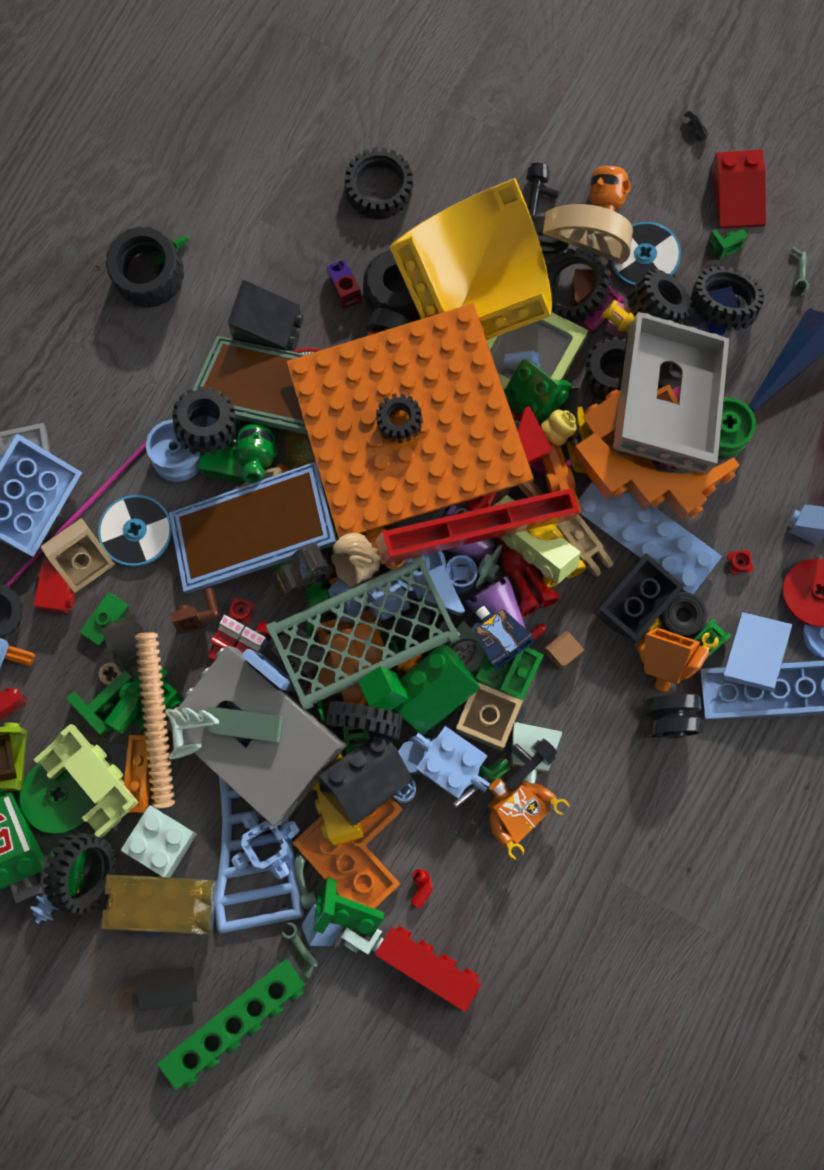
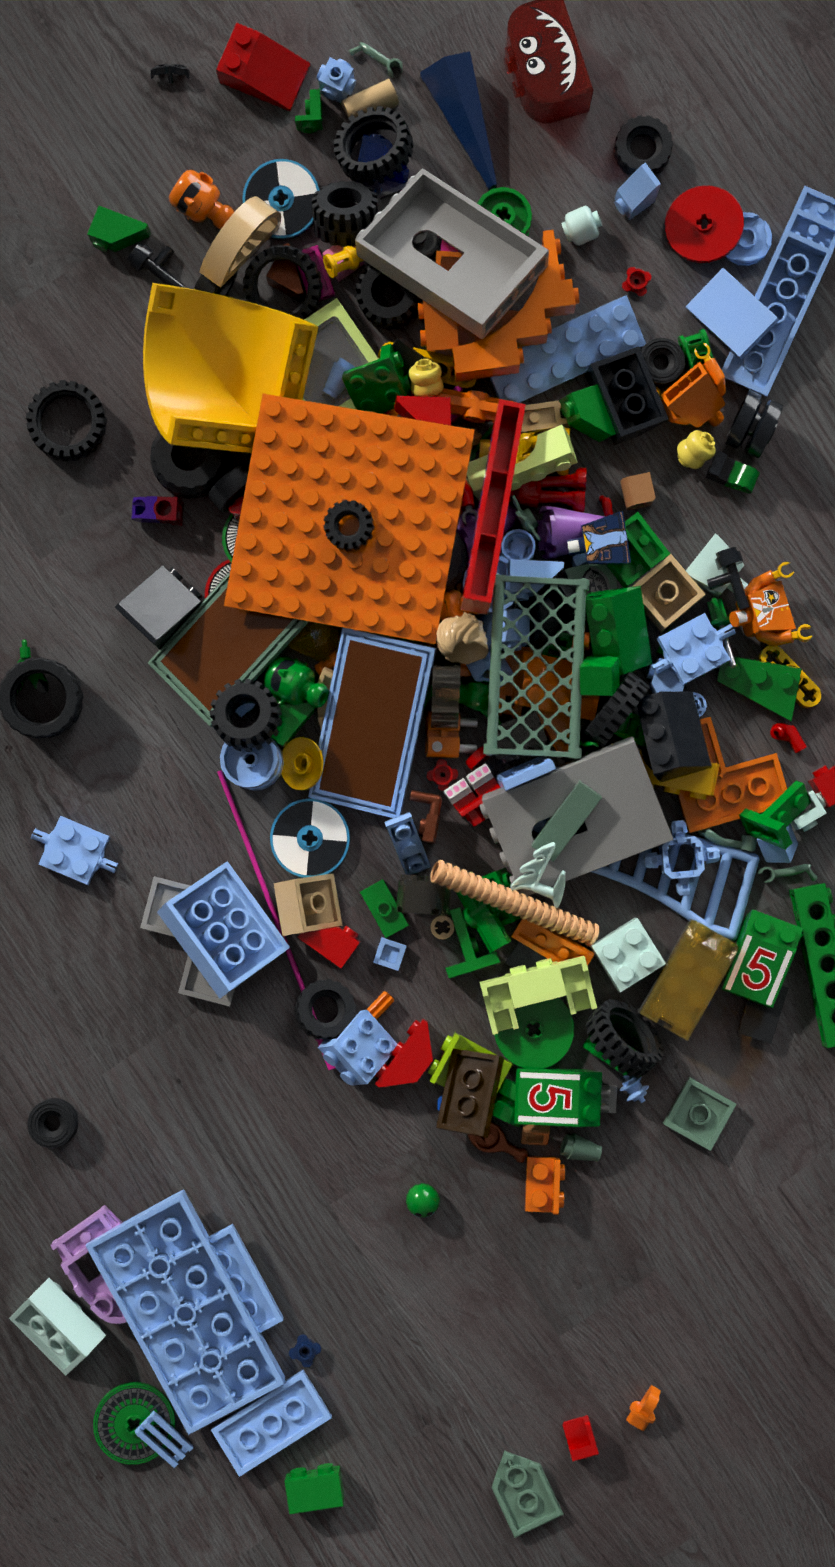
camera: 60 degrees left, 10 degrees up
(37, 355) = (74, 850): none -> light blue plate
(48, 978) = (699, 1113): none -> sand green plate
(68, 643) = (389, 953): none -> light blue tile
(166, 600) = (407, 844): none -> light blue slope
(192, 492) = (295, 756): none -> yellow dish
(210, 962) = (762, 958): none -> green slope
(268, 599) = (446, 741): none -> orange piece
(455, 842) = (764, 682): none -> green wing
(462, 879) = (810, 685): none -> yellow beam
(548, 145) = (115, 230): none -> green slope
(605, 573) = (588, 413): none -> green slope
(623, 722) = (732, 473): none -> leg
(625, 680) = (696, 449): none -> light yellow piece
(759, 493) = (581, 225): none -> light aqua head
(763, 246) = (336, 79): none -> light blue brick
(772, 286) = (378, 95): none -> tan brick

